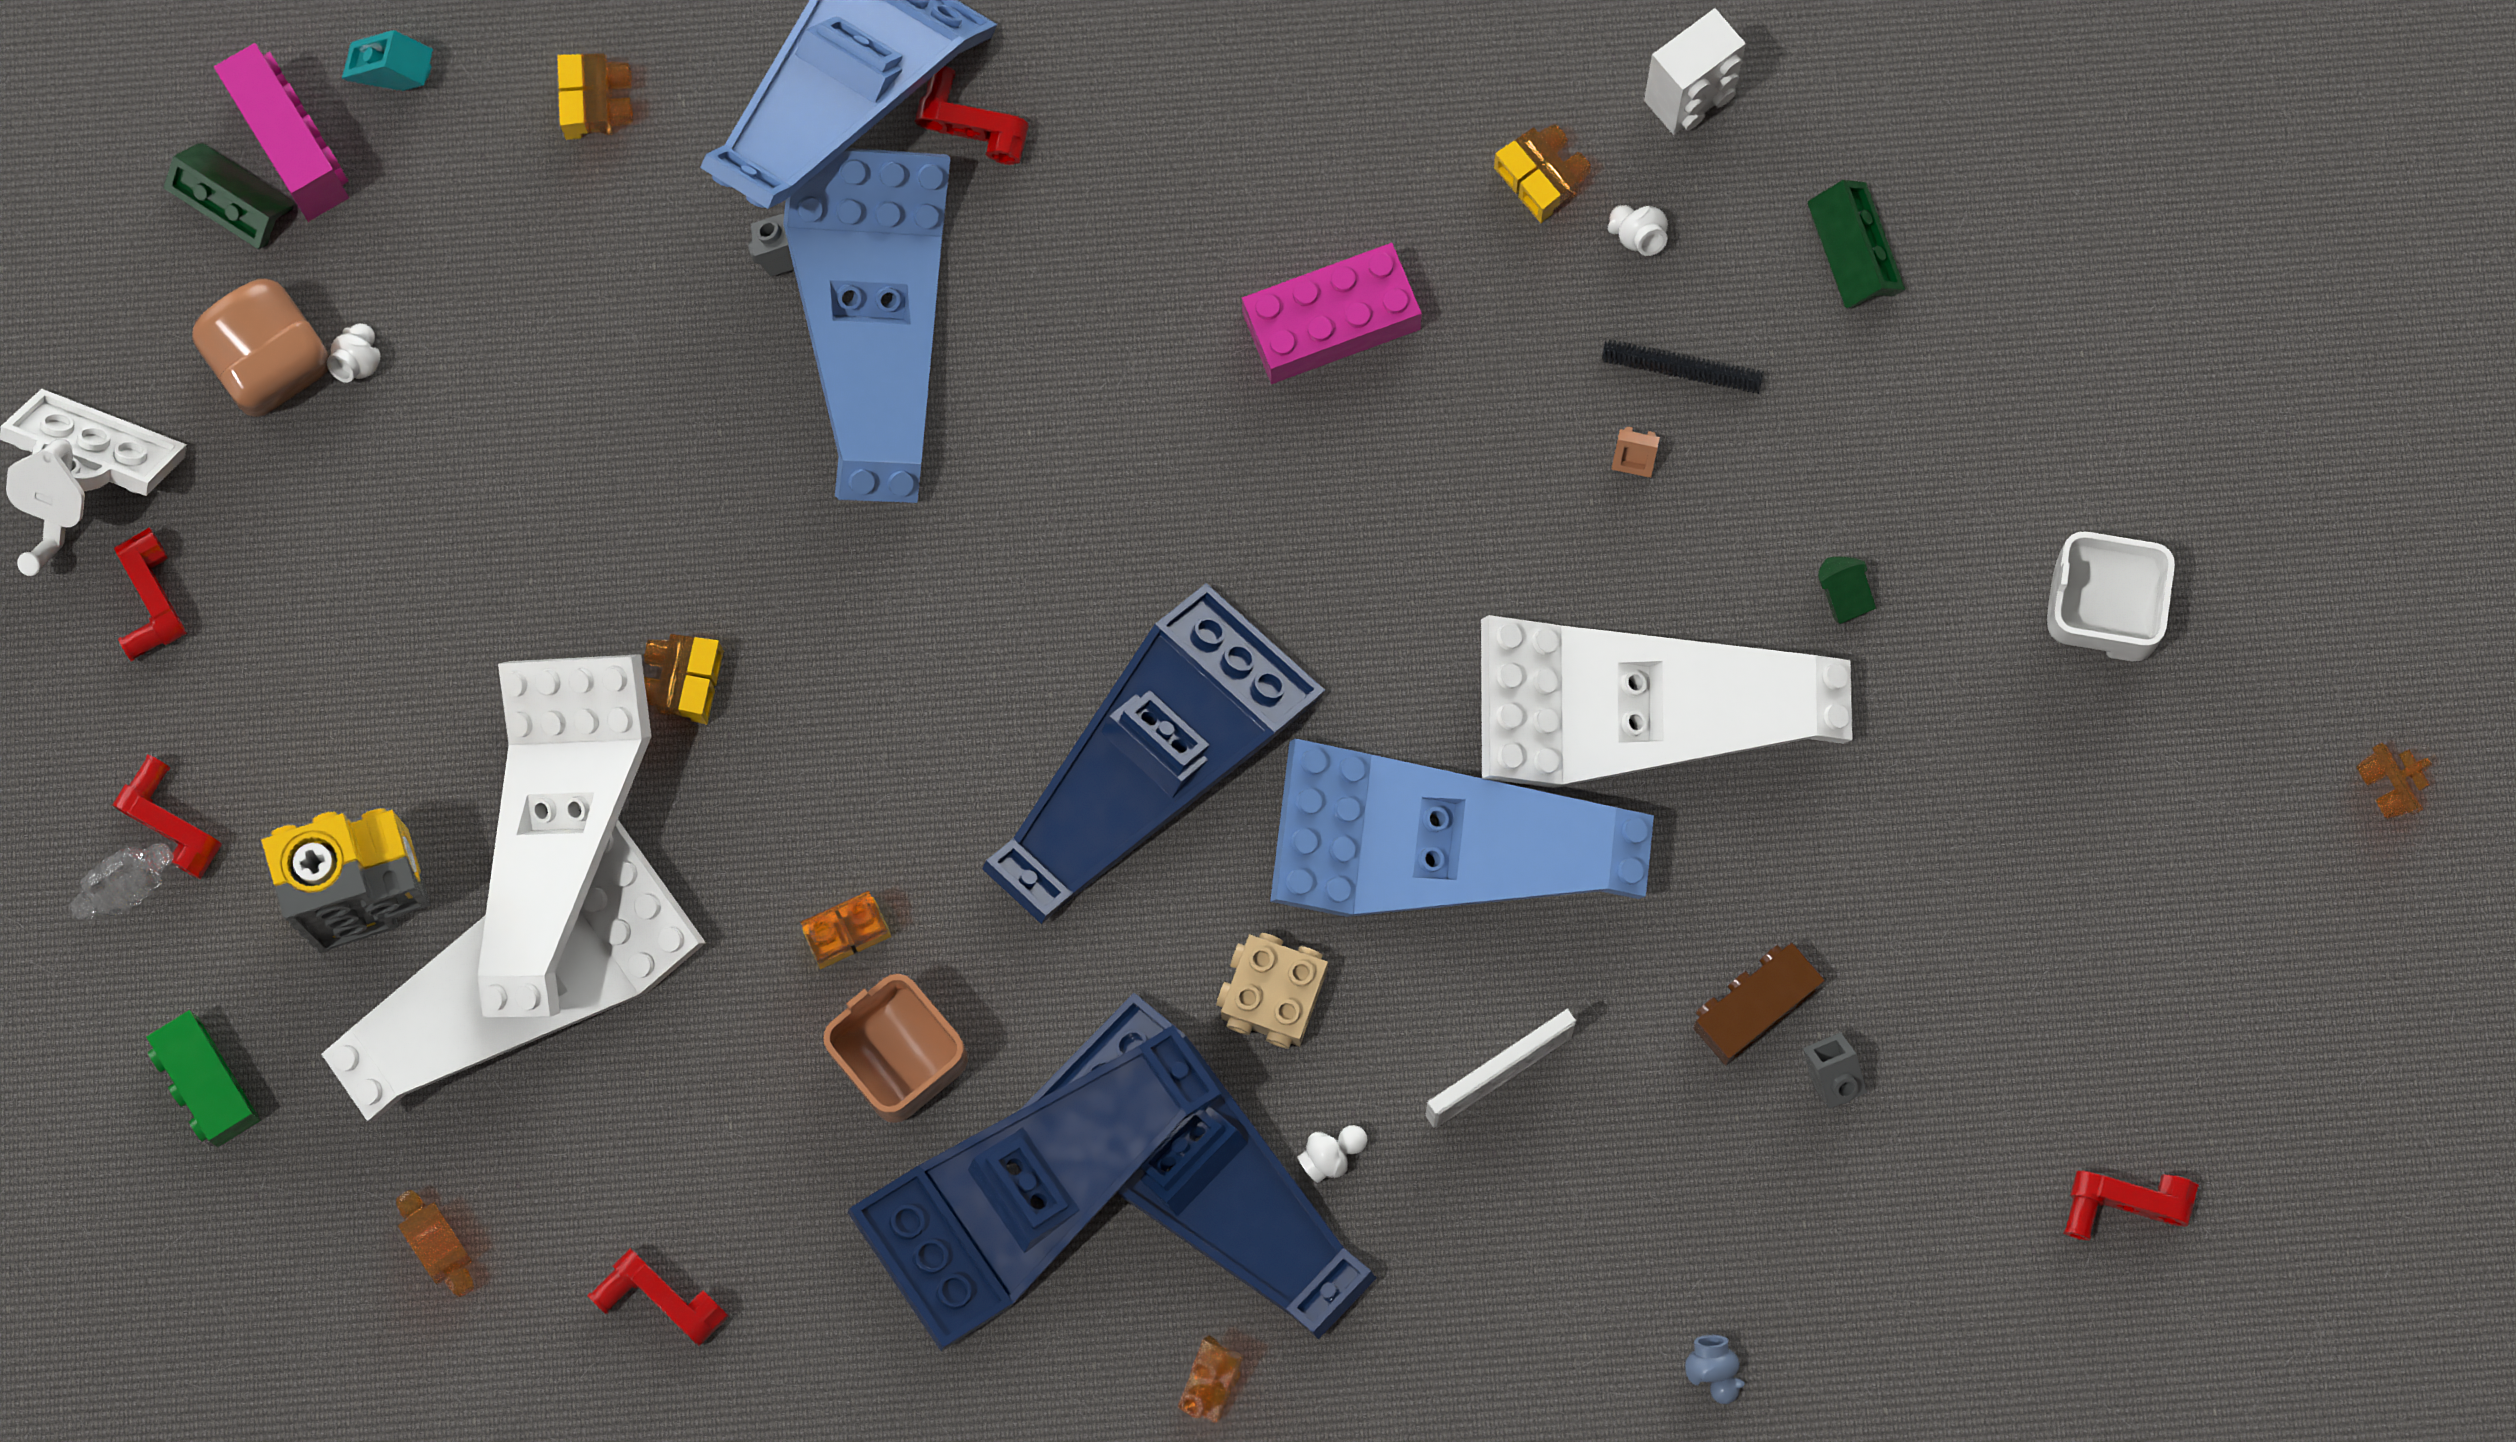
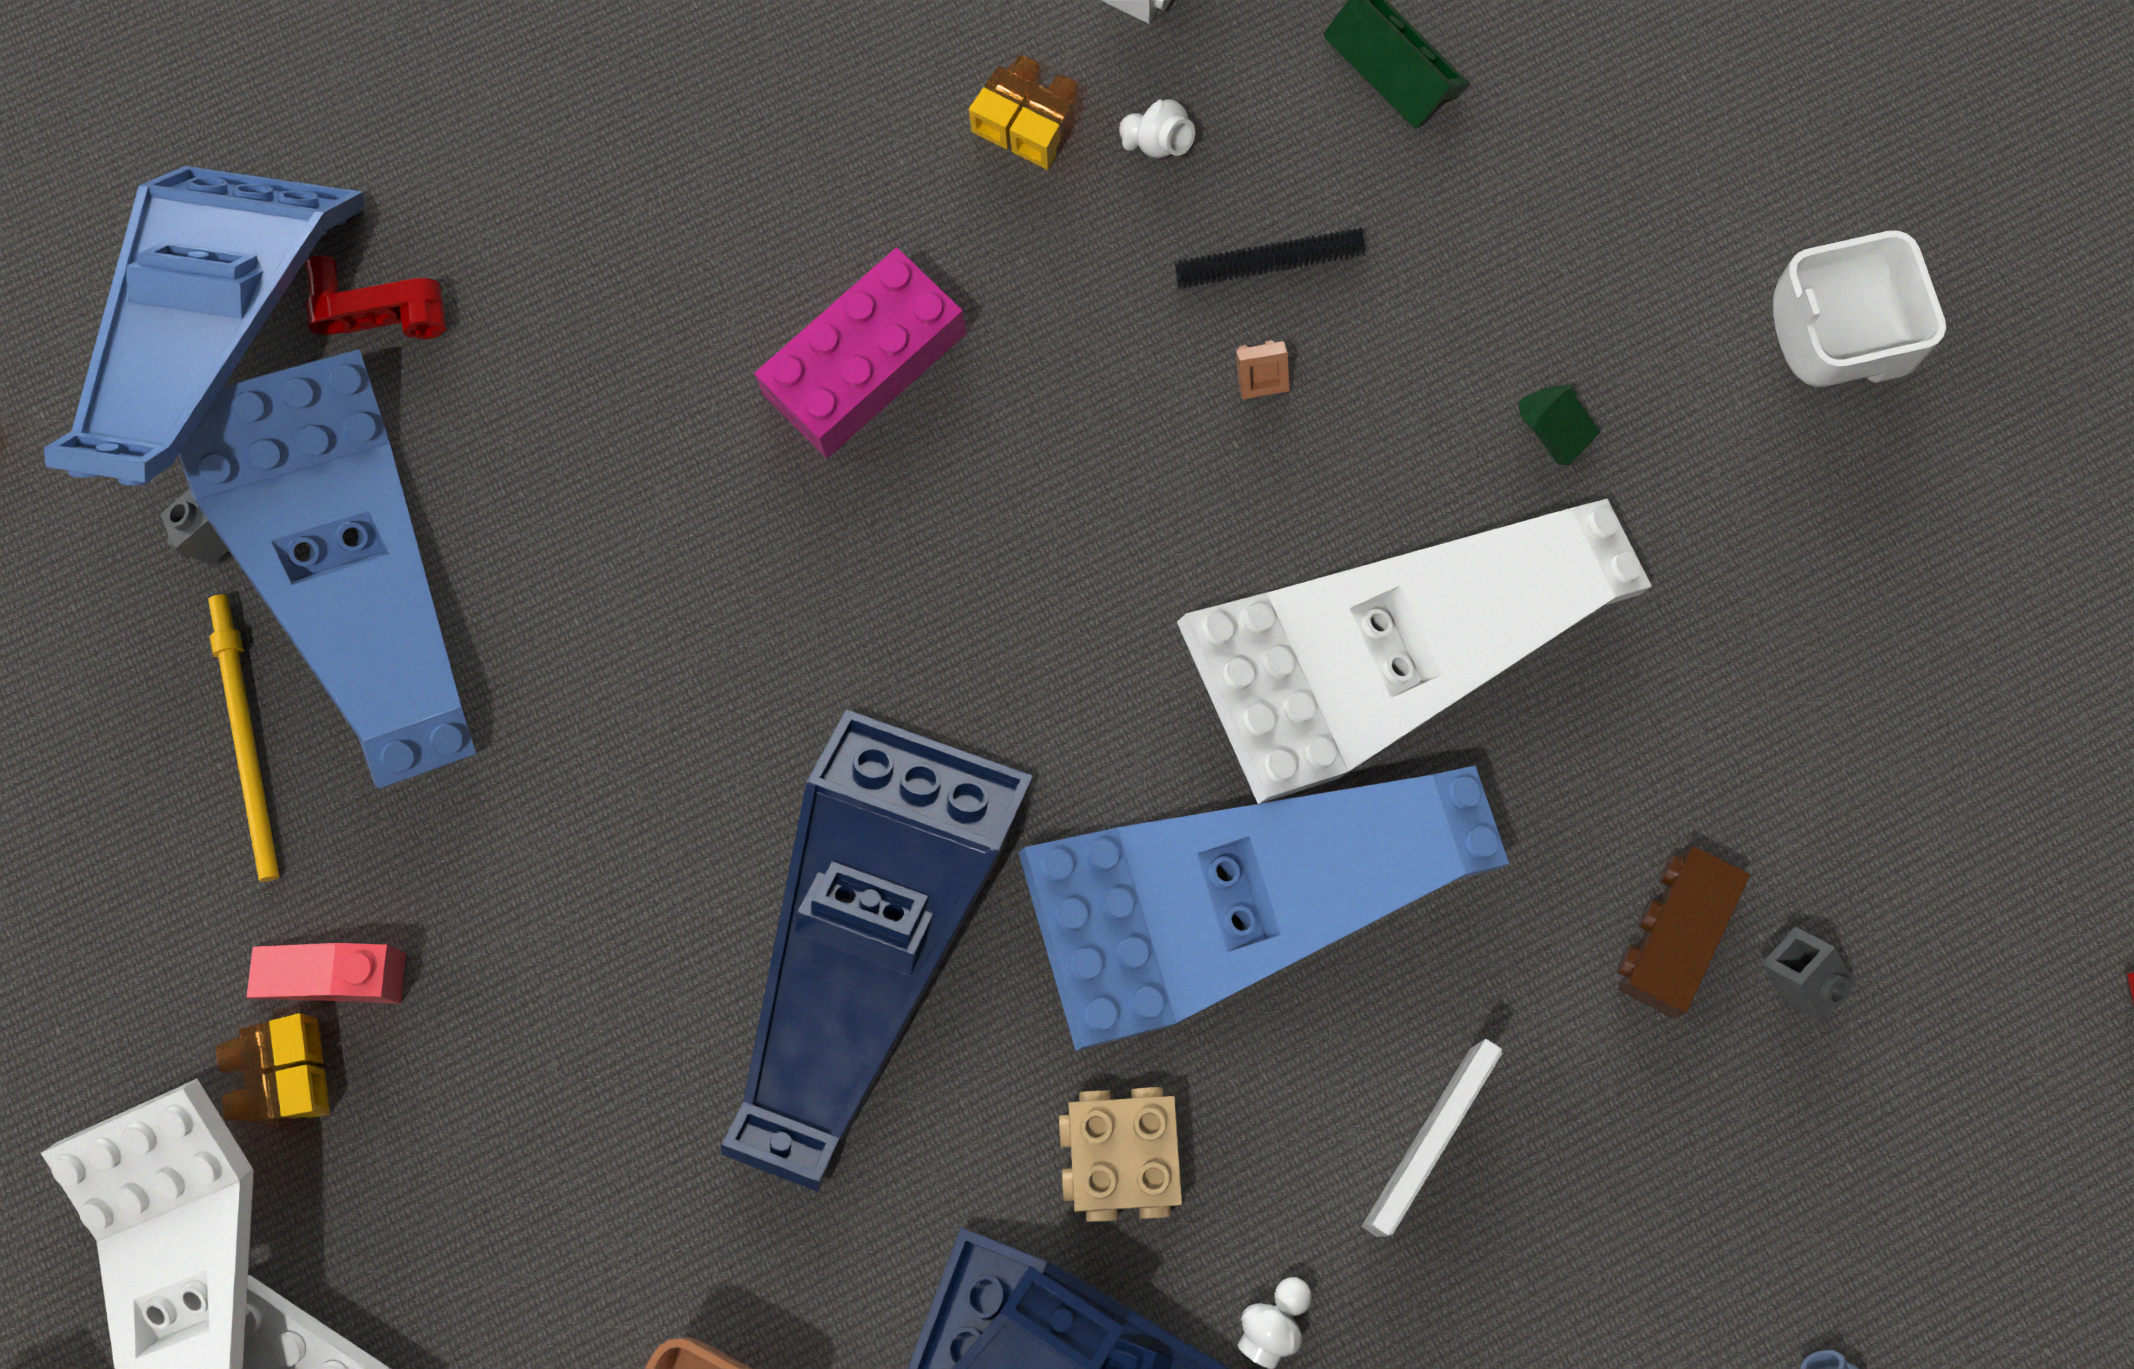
camera: 20 degrees left, 0 degrees up
(745, 620) = (327, 973): none -> coral slope
(760, 345) = (227, 646): none -> yellow bar
(845, 925) = (585, 1299): clear orange hips -> none

